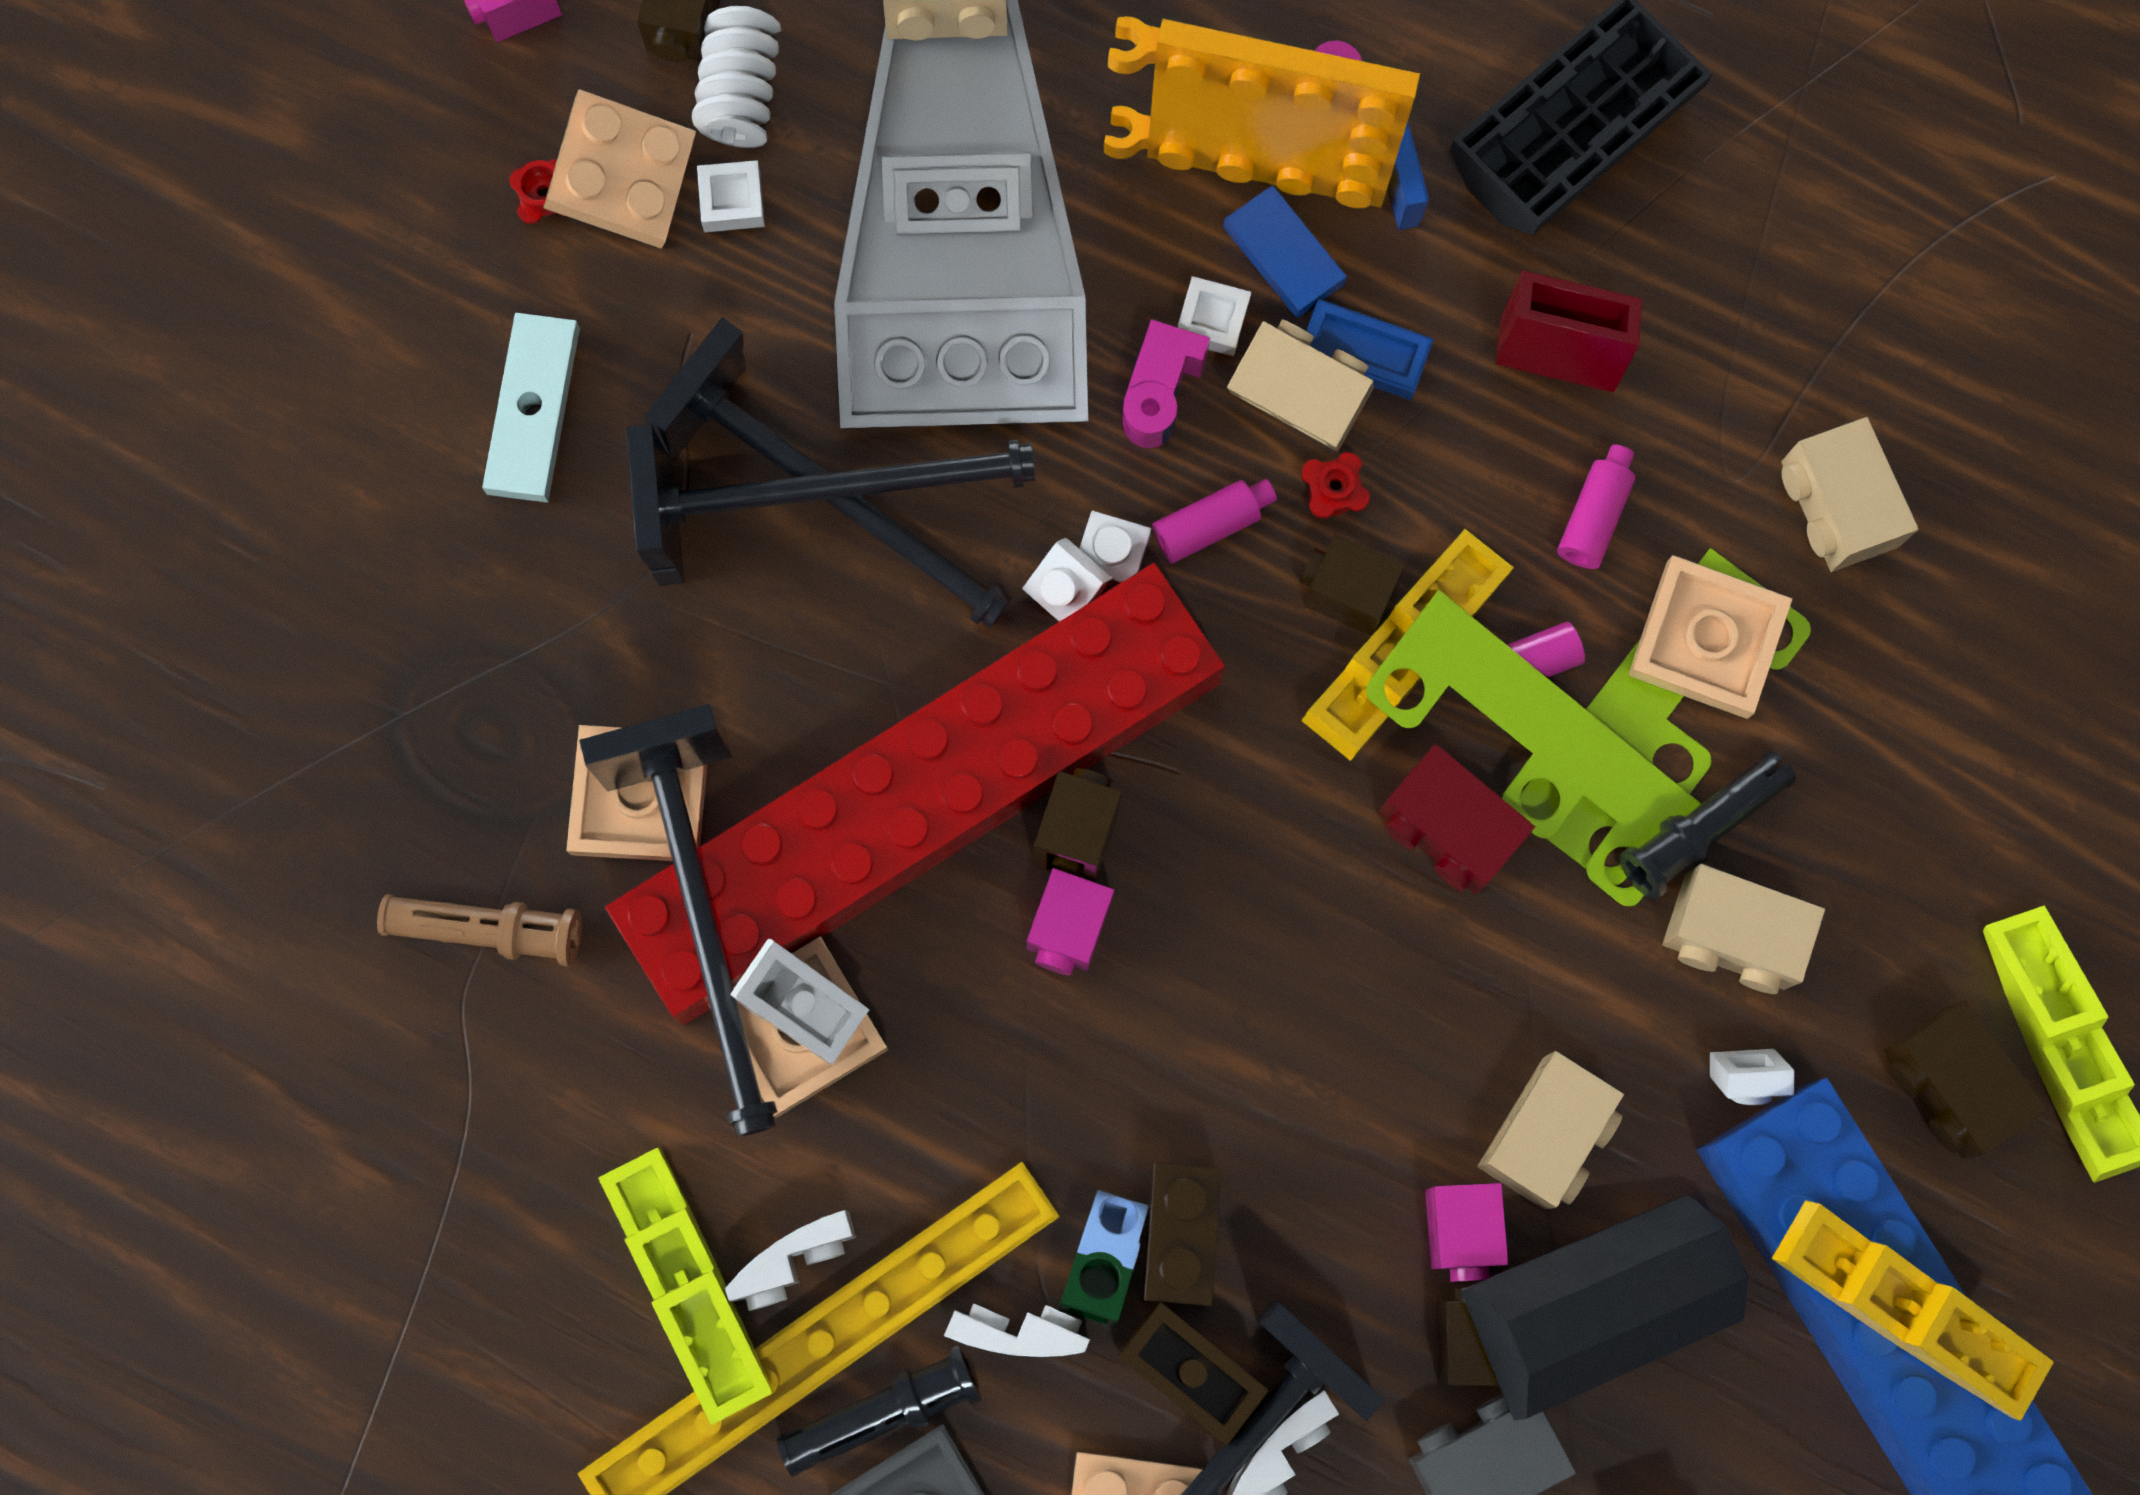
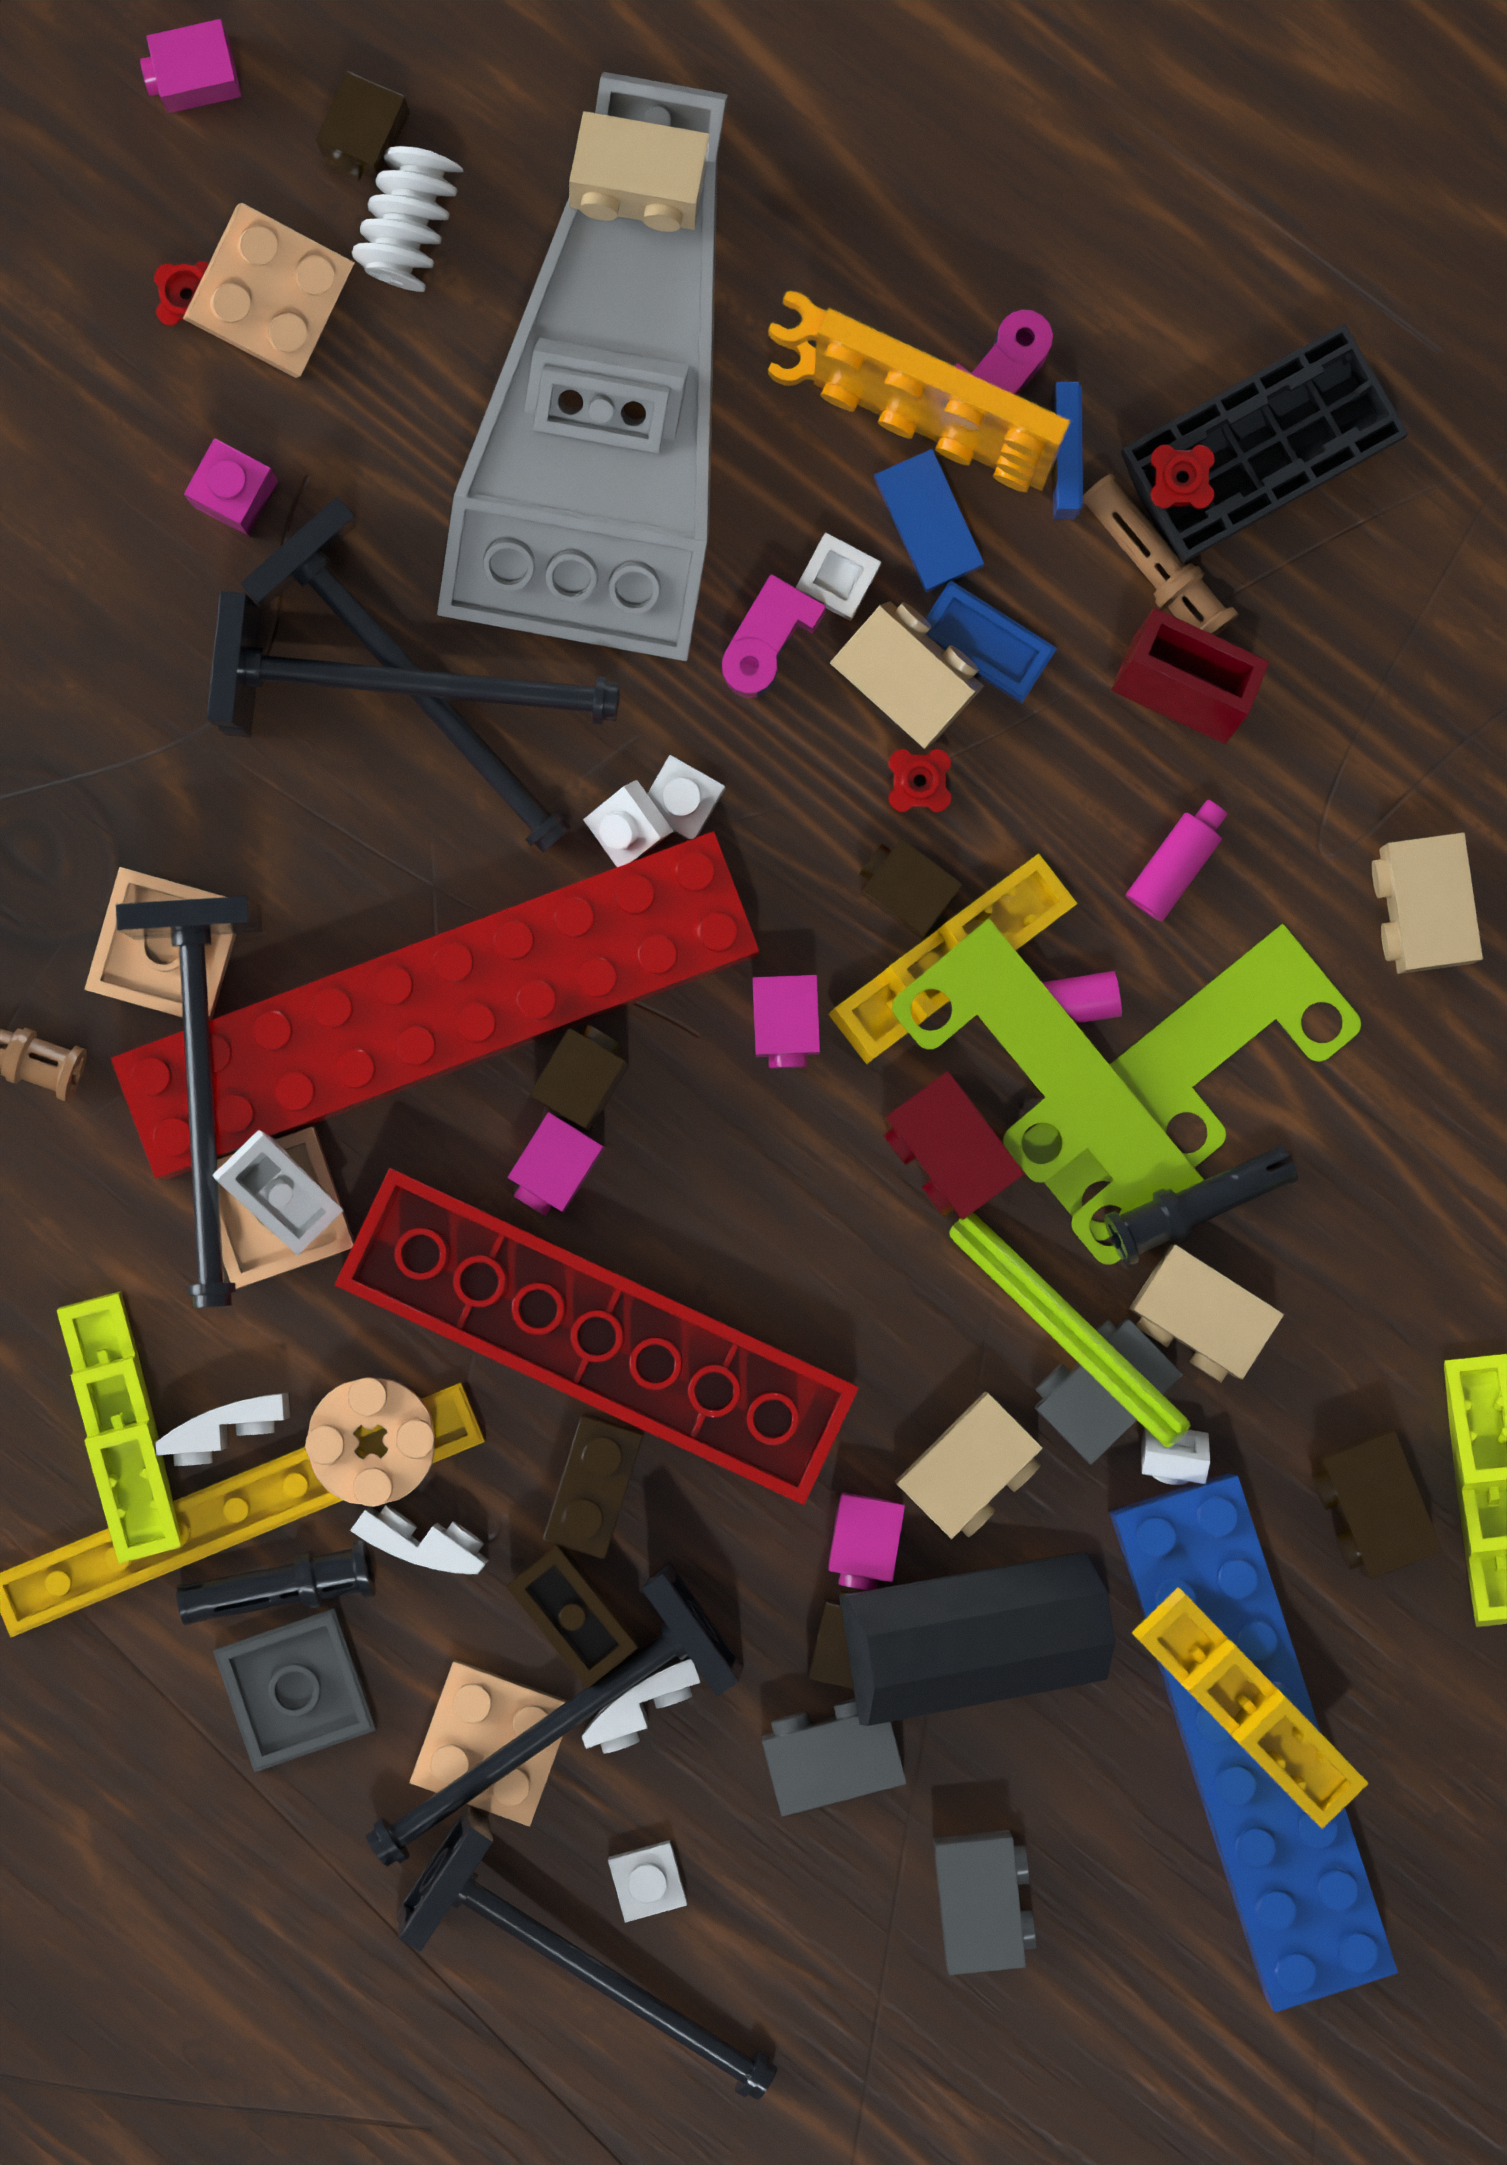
camera: 15 degrees right, 10 degrees up
(534, 374) = (145, 489): light aqua tile -> none
(619, 349) = (231, 487): none -> dark pink brick
(730, 196) = (376, 342): white plate -> none
(907, 1249) = (333, 1441): none -> light nougat plate
(1104, 1260) = (518, 1490): leg -> none
(1153, 1080) = (597, 1336): none -> red brick
(1212, 518) = (788, 788): dark pink cylinder -> none
(1263, 732) = (786, 1019): none -> dark pink brick
(1517, 165) = (1169, 490): none -> red plate
(1538, 253) = (1182, 592): none -> medium nougat pin
(1624, 970) = (1070, 1330): none -> lime axle
(1666, 1024) = (1084, 1409): none -> dark grey brick
(1710, 637) = (1252, 1018): light nougat plate -> none

